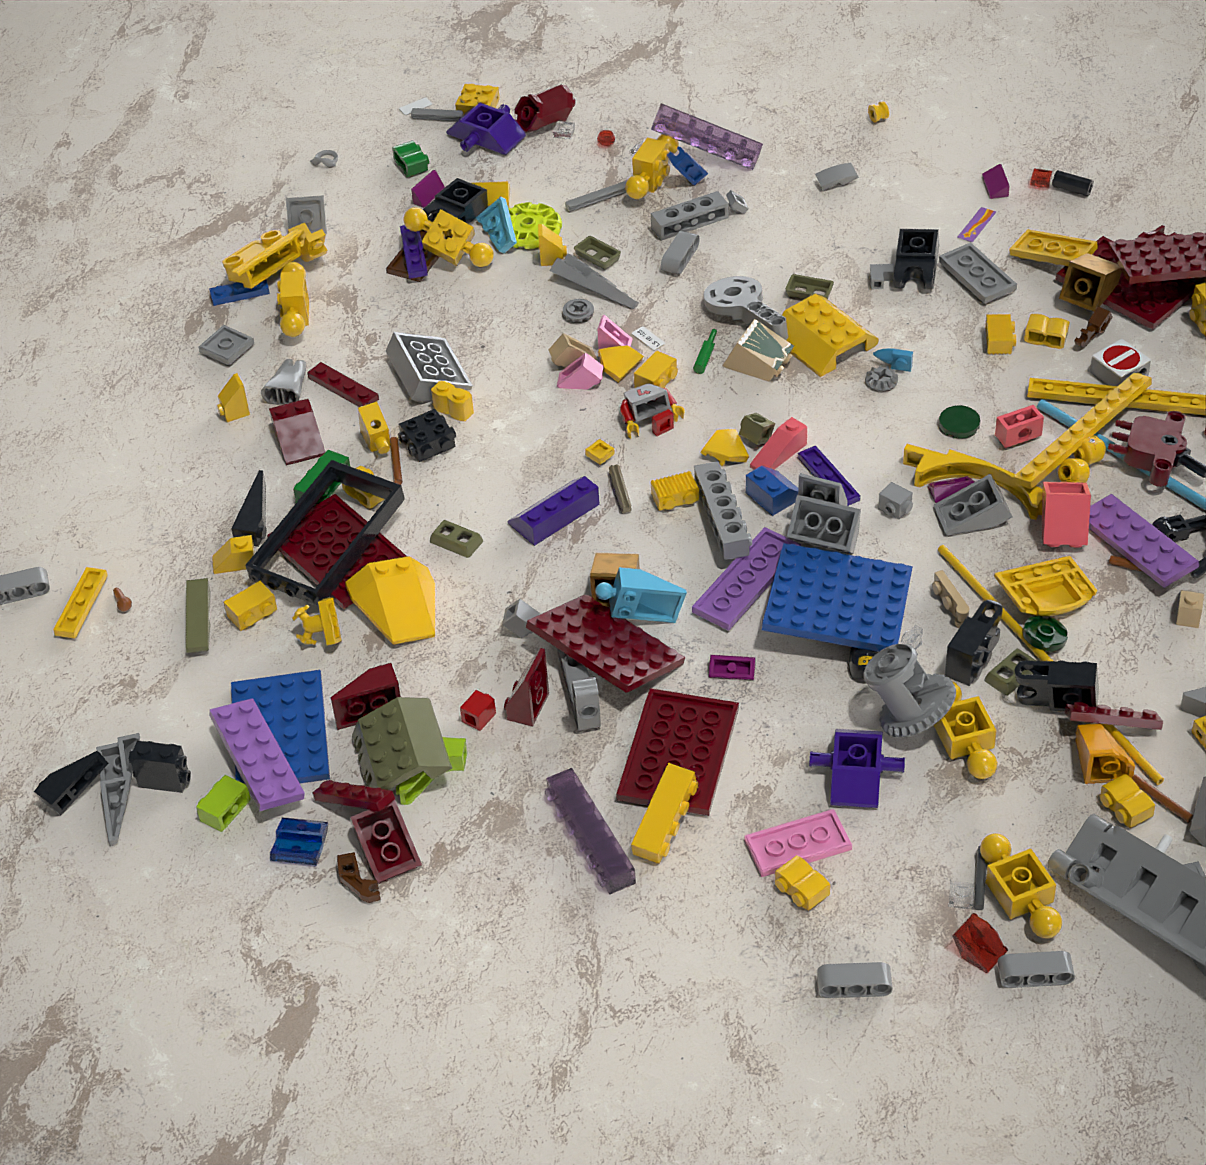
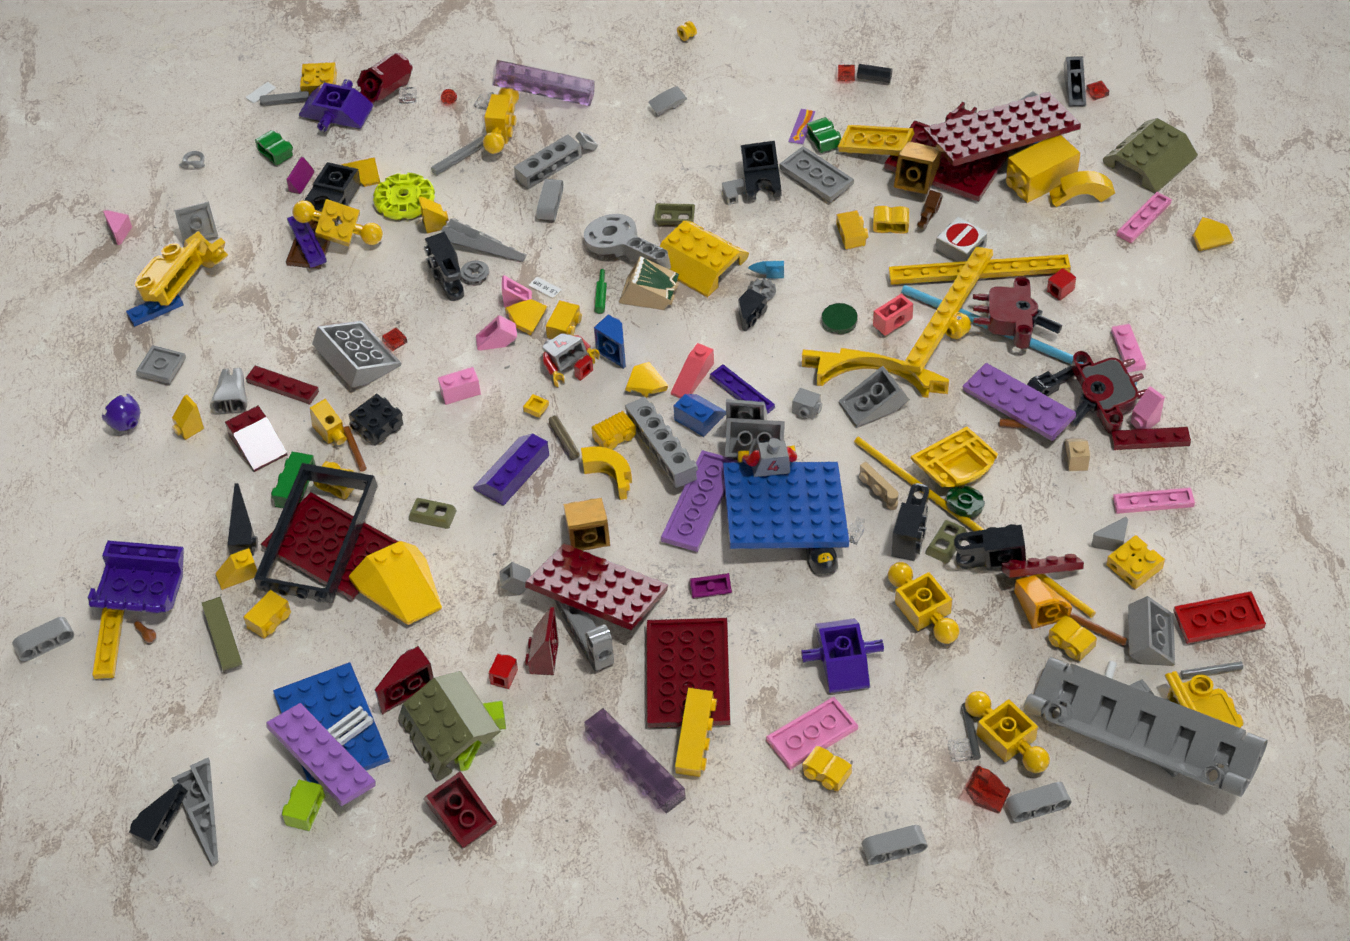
camera: 15 degrees left, 5 degrees up
(132, 543) = (139, 577): none -> dark purple slope
(159, 766) = (237, 784): black brick -> none
(169, 382) = (122, 413): none -> dark purple cylinder
(230, 206) = (118, 224): none -> bright pink slope
(293, 299) = (211, 309): yellow brick -> none
(296, 731) = (348, 724): none -> white tile
(299, 841) = (382, 825): clear blue slope -> none
(325, 621) = (342, 617): yellow piece -> none
(353, 795) = (420, 774): dark red plate -> none
(361, 887) = (442, 851): reddish brown piece -> none
(452, 401) = (389, 382): yellow brick -> none
(473, 361) = (394, 339): none -> clear red plate
(498, 224) = (377, 200): medium azure wing -> none
(524, 417) = (459, 385): none -> bright pink brick
(547, 295) = (444, 264): none -> black brick
(567, 350) = (480, 314): tan slope -> none
(602, 250) = (478, 208): olive piece -> none
(642, 596) = (618, 538): medium azure slope -> none
(658, 520) = (608, 461): none -> yellow arch
(687, 166) = (533, 114): blue hinge -> none
(699, 398) = (610, 340): none -> blue slope
(756, 428) = (668, 358): olive brick -> none
(834, 544) = (769, 458): none -> light grey torso
(864, 393) = (751, 307): none -> black slope
(903, 687) = (864, 574): light grey piece -> none
(945, 488) = (847, 382): magenta slope -> none
(996, 182) = (808, 83): magenta slope -> none
(997, 234) = (823, 134): none -> green brick
(1065, 514) = (955, 389): coral slope -> none
(1073, 470) = (949, 348): yellow head -> none

